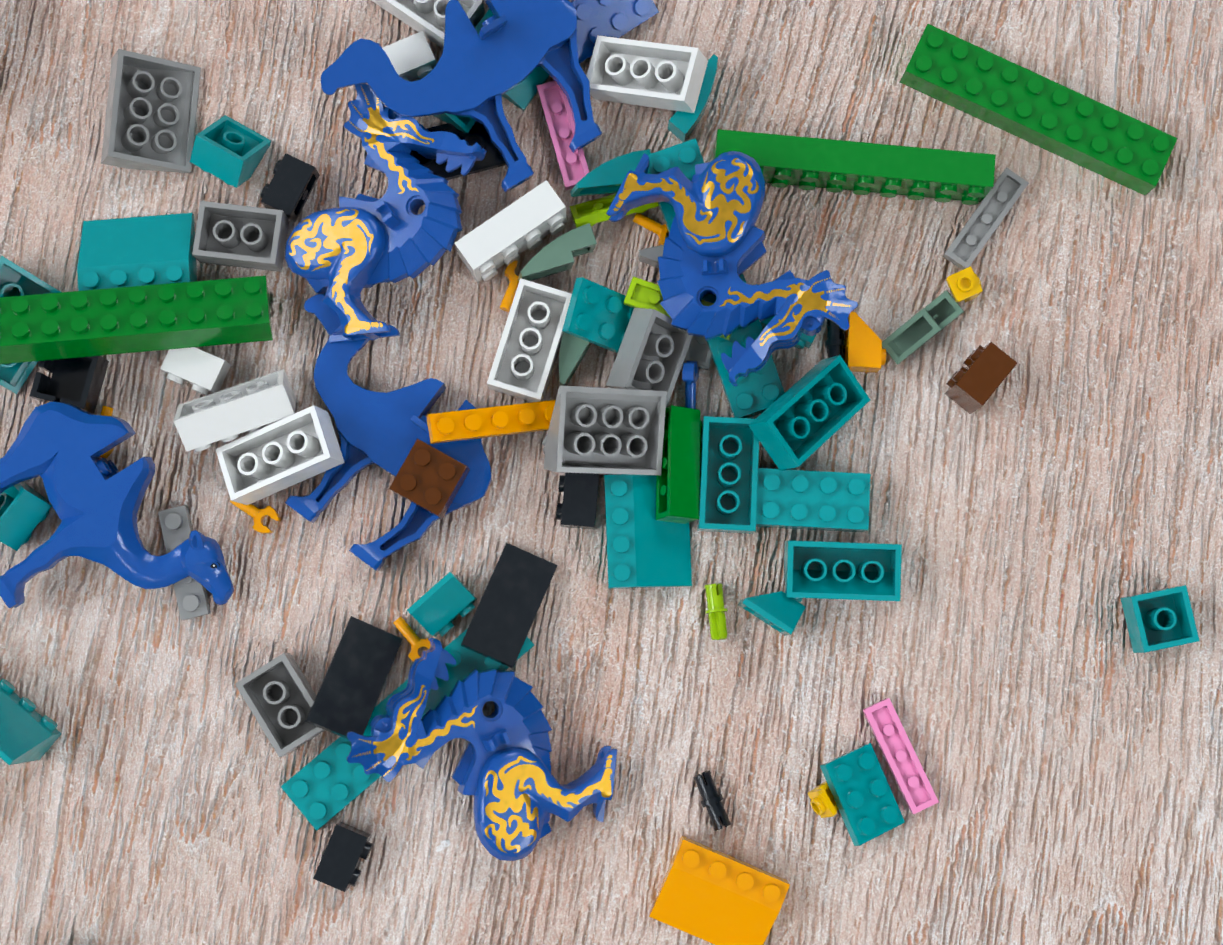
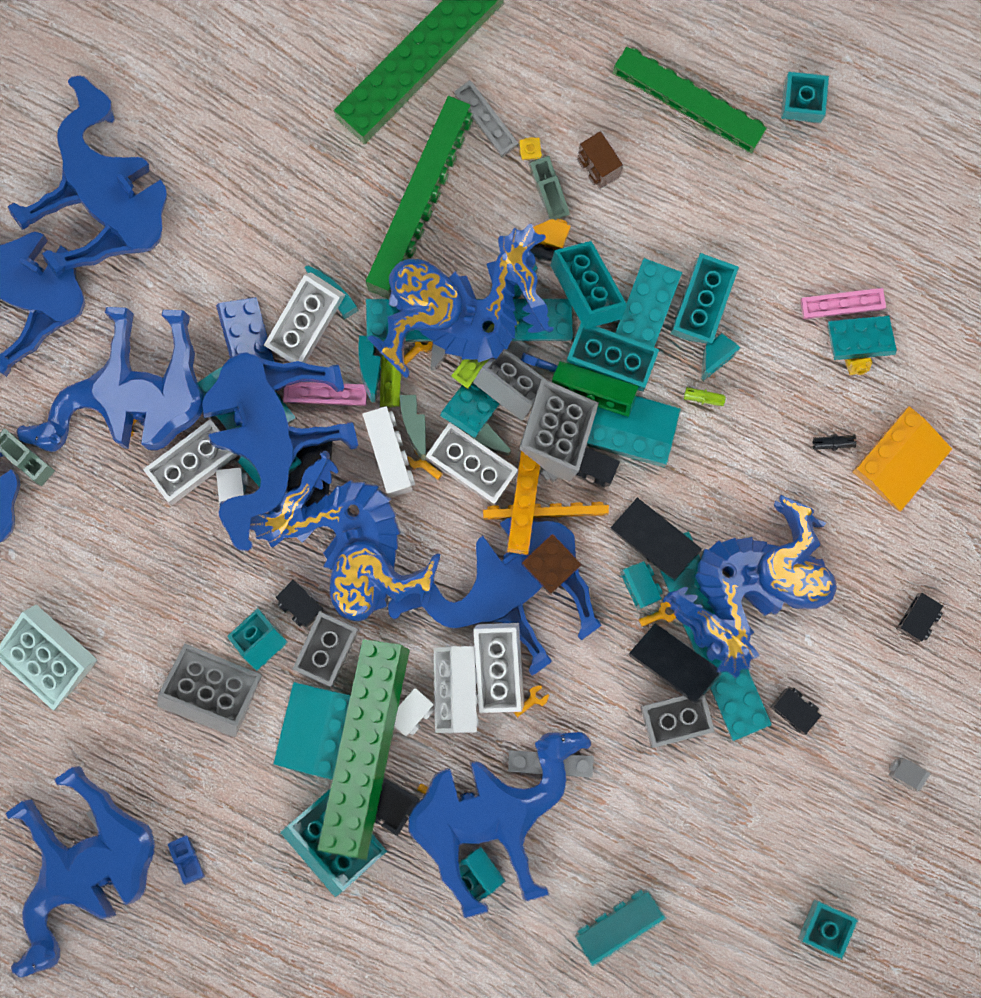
camera: 70 degrees left, 0 degrees up
(506, 465) = (555, 510): none -> light orange plate
(1102, 470) = (689, 100): none -> green brick

